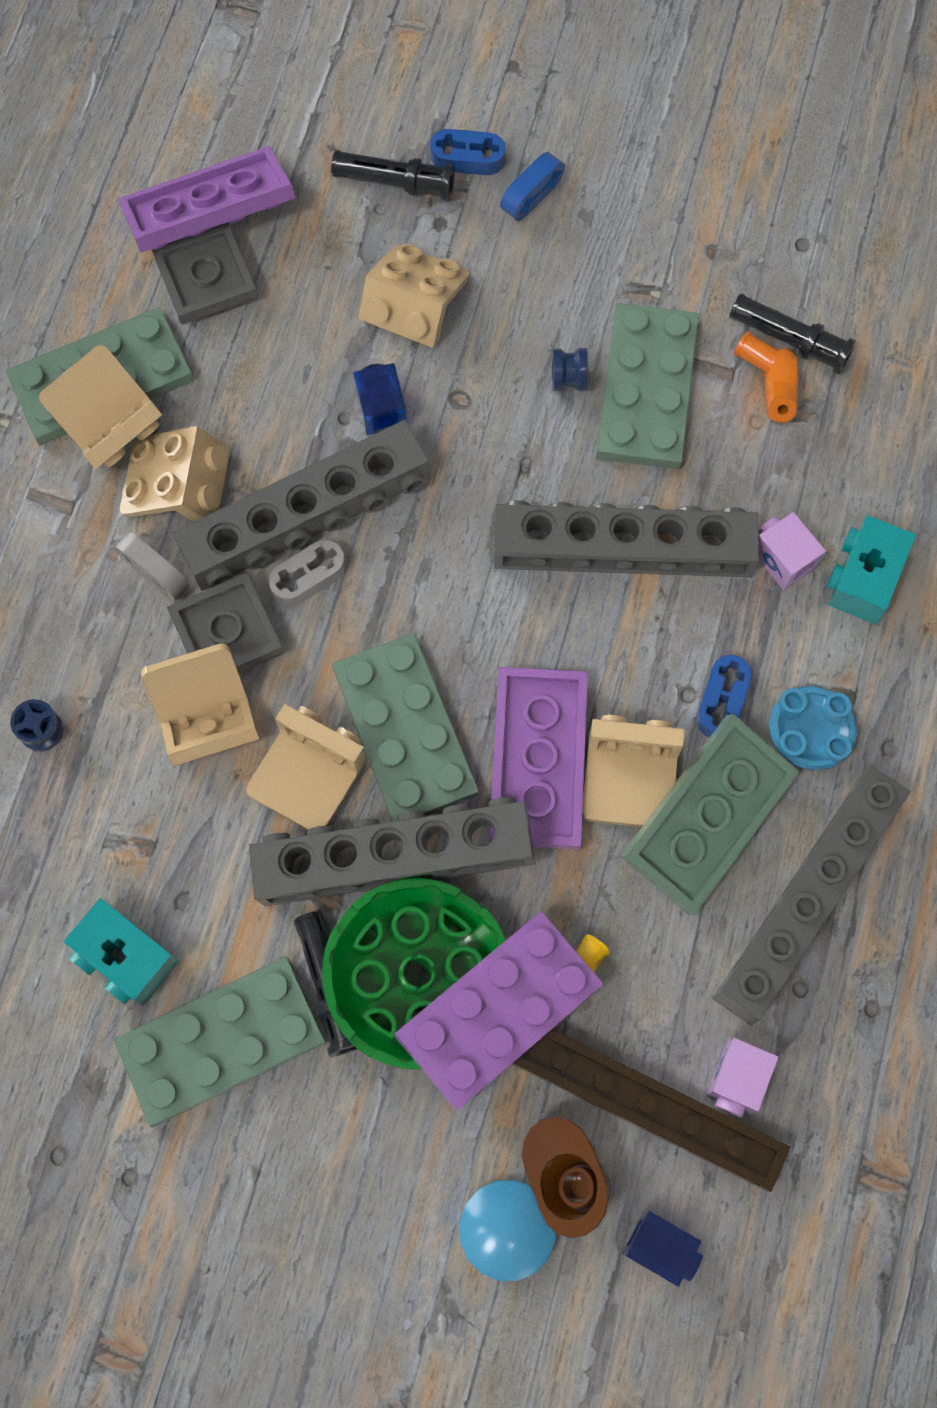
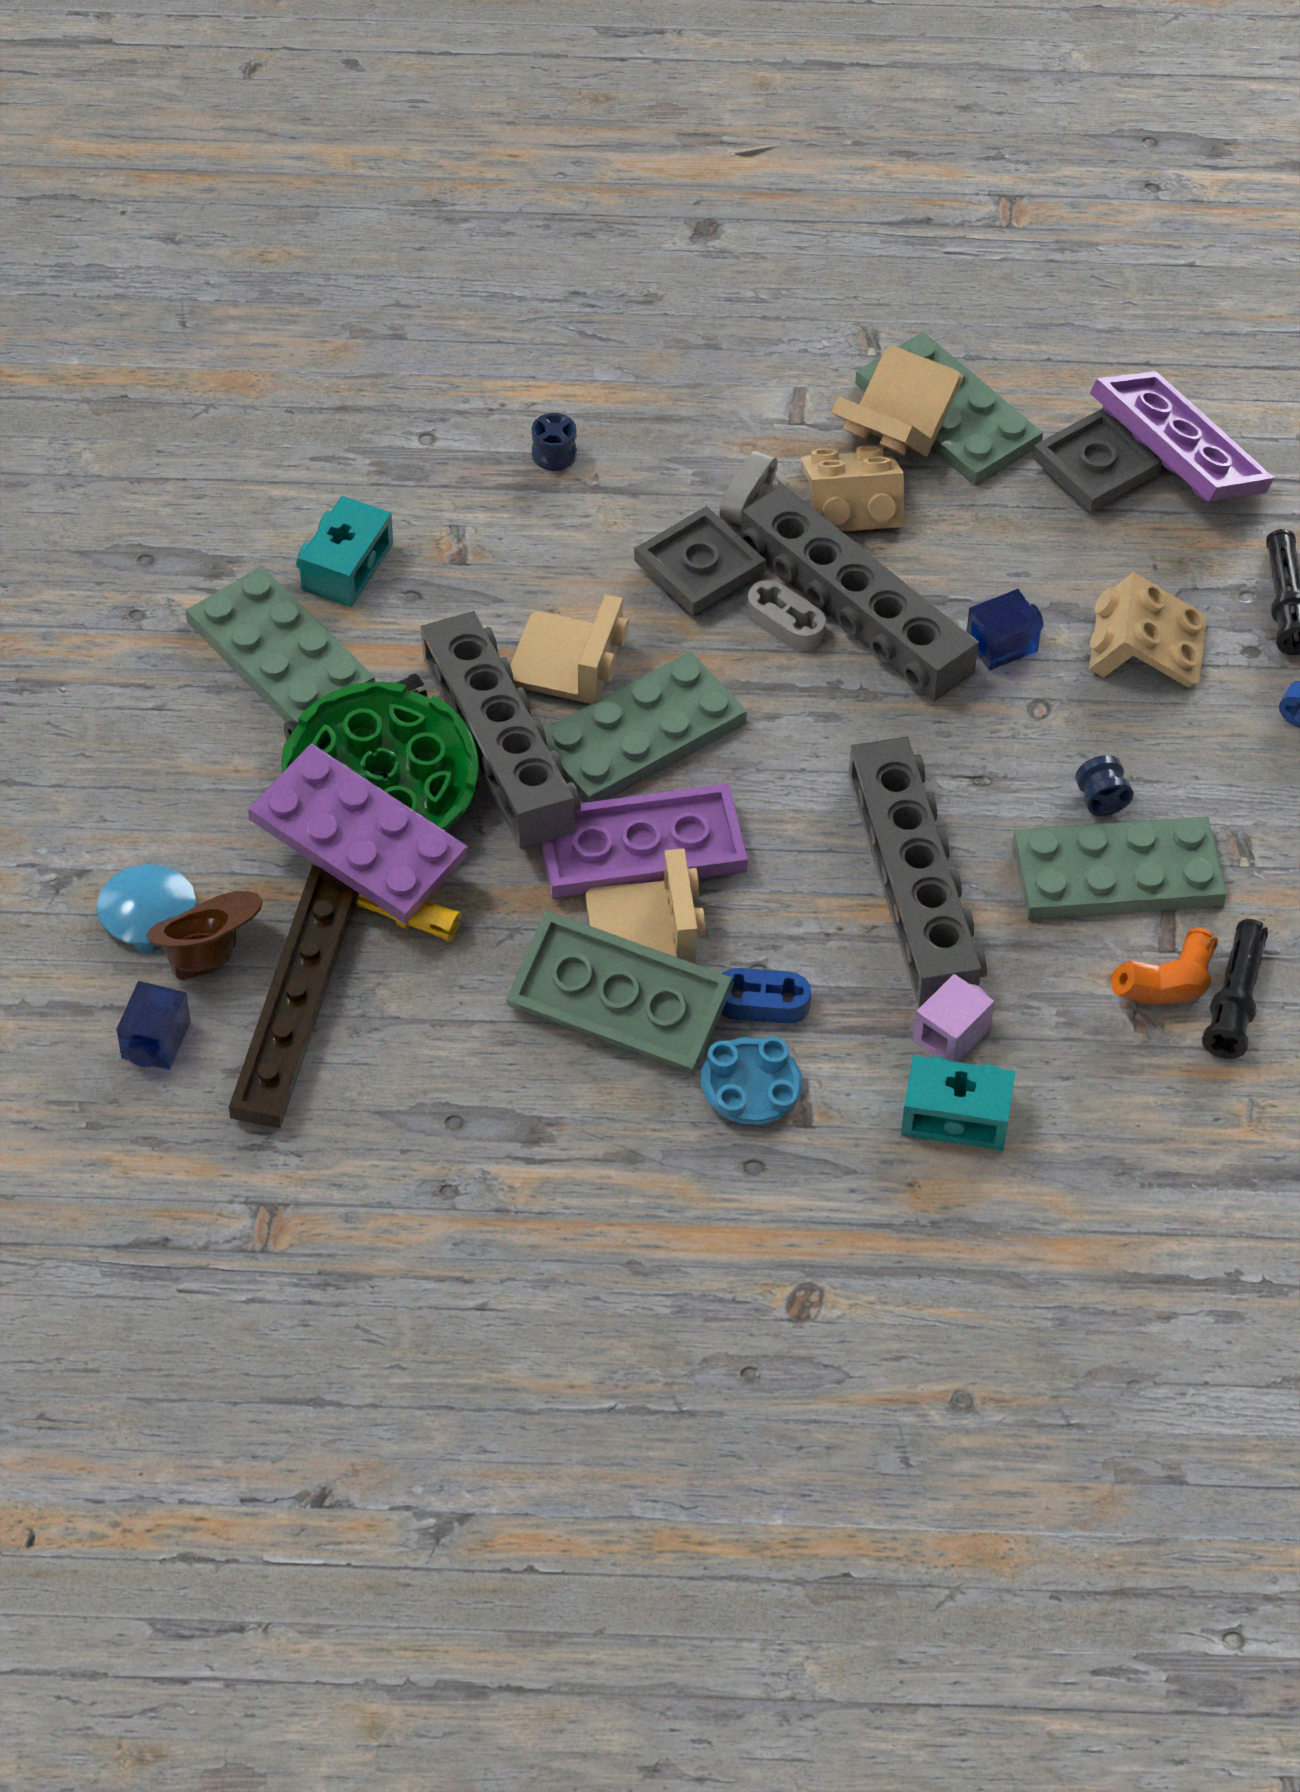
camera: 75 degrees right, 20 degrees down
(200, 703) = (613, 549): tan bracket -> none
(741, 1078) = (341, 1066): lavender brick -> none
(810, 896) = (555, 1096): dark grey brick -> none

